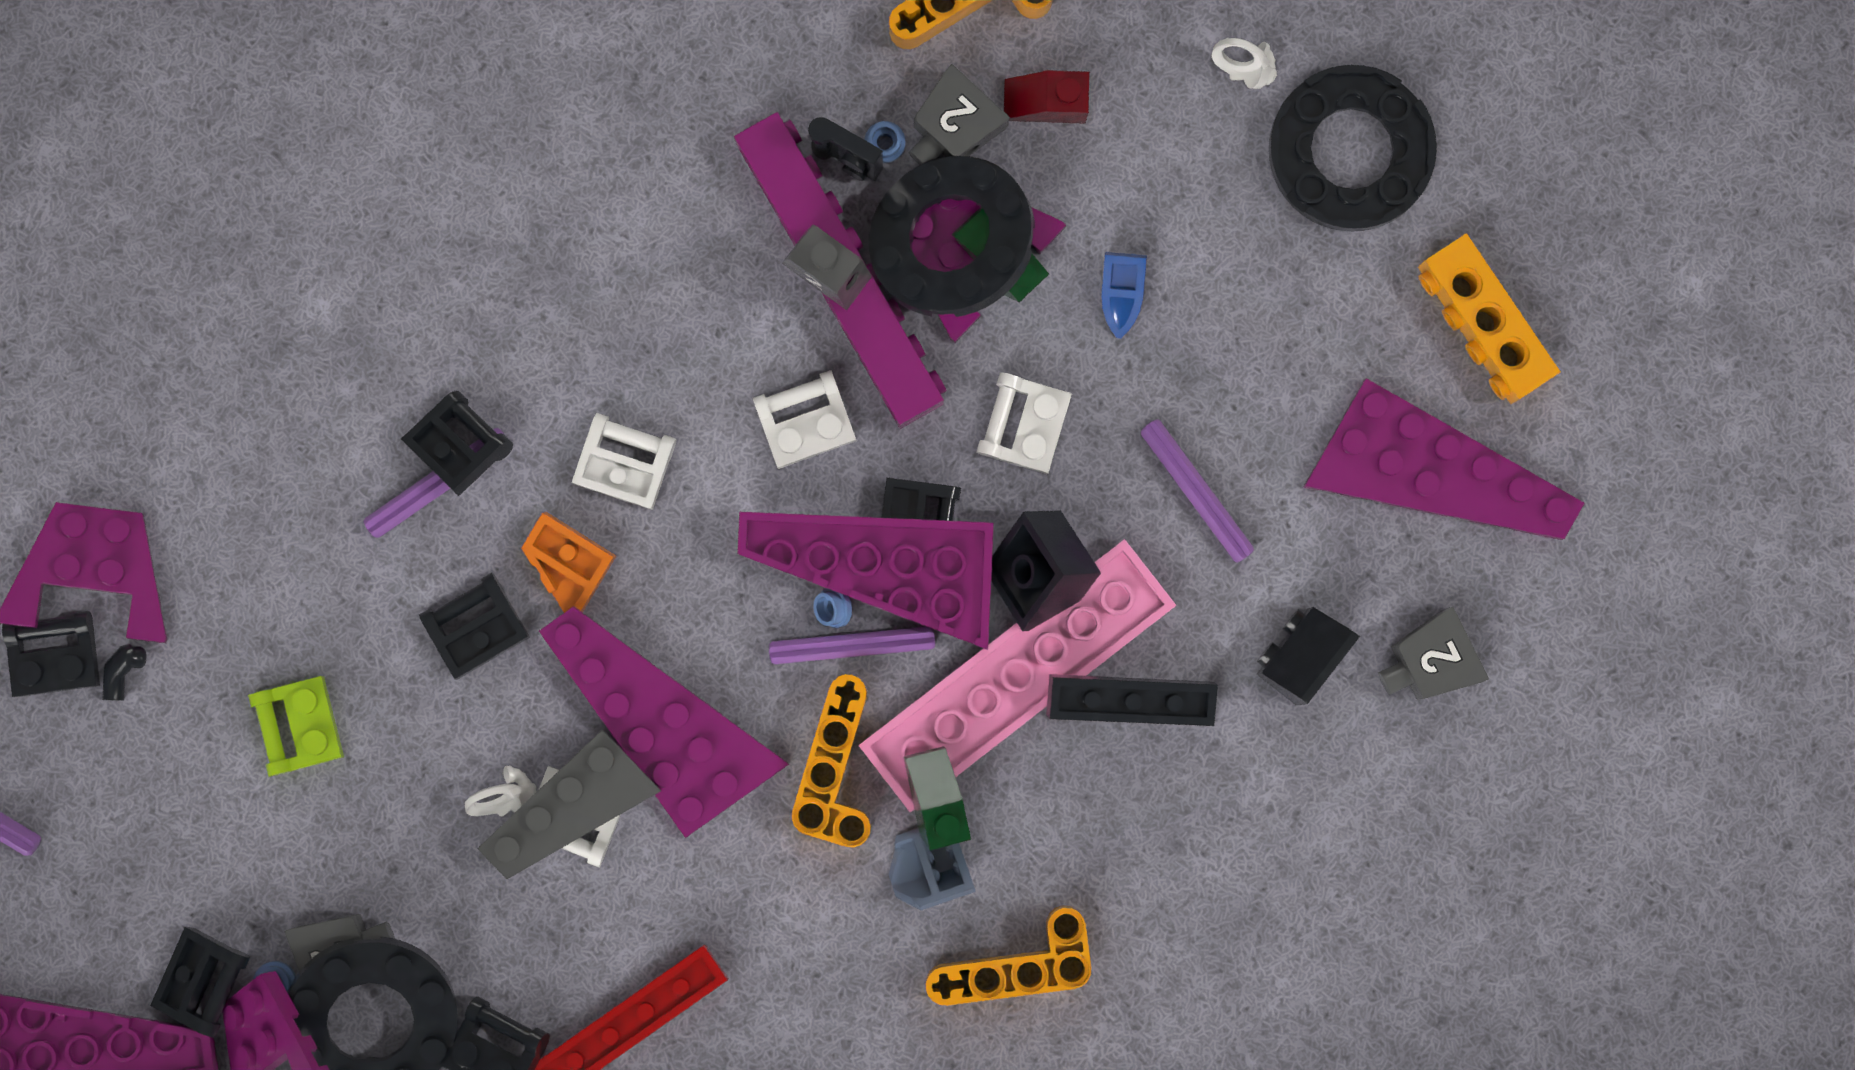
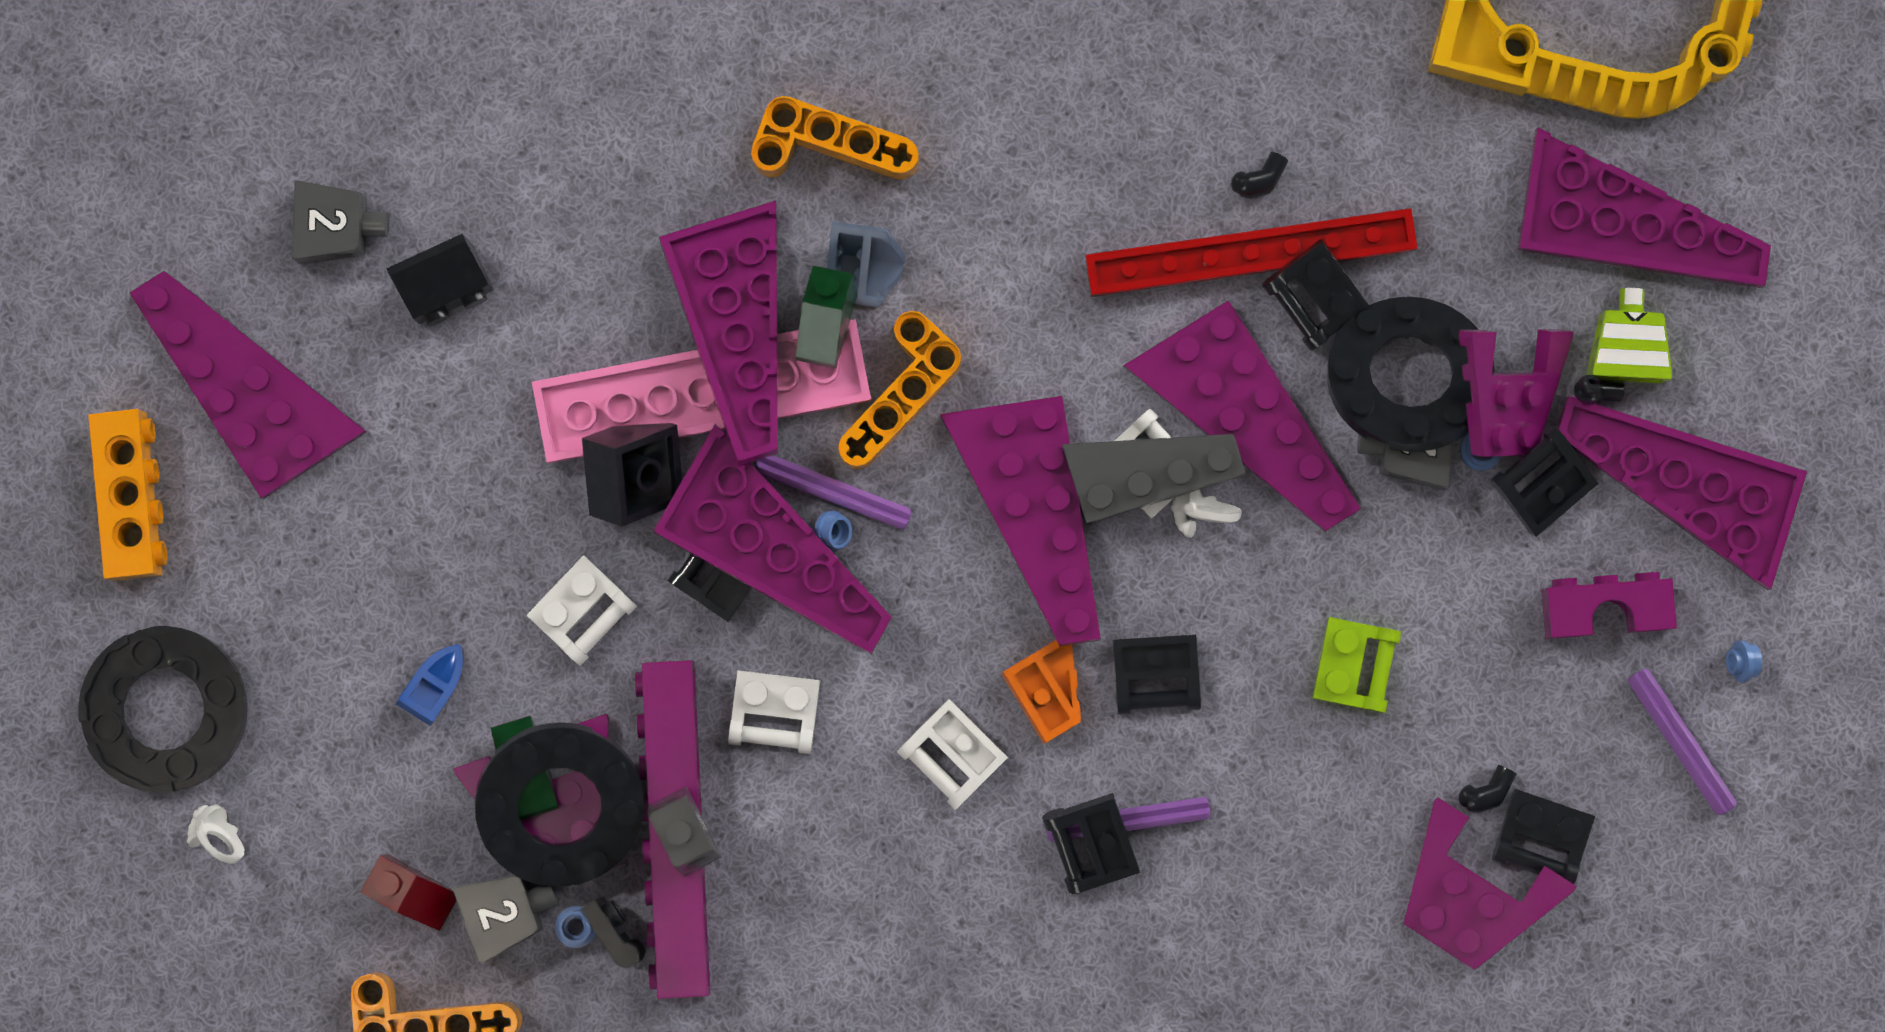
camera: 145 degrees left, 0 degrees up
(120, 877) = (1646, 603): none -> magenta arch
(533, 921) = (1228, 387): none -> magenta wing
(1032, 769) = (730, 302): none -> magenta wing
(1131, 700) = (613, 318): black plate -> none
(1197, 490) = (461, 474): medium lavender axle -> none

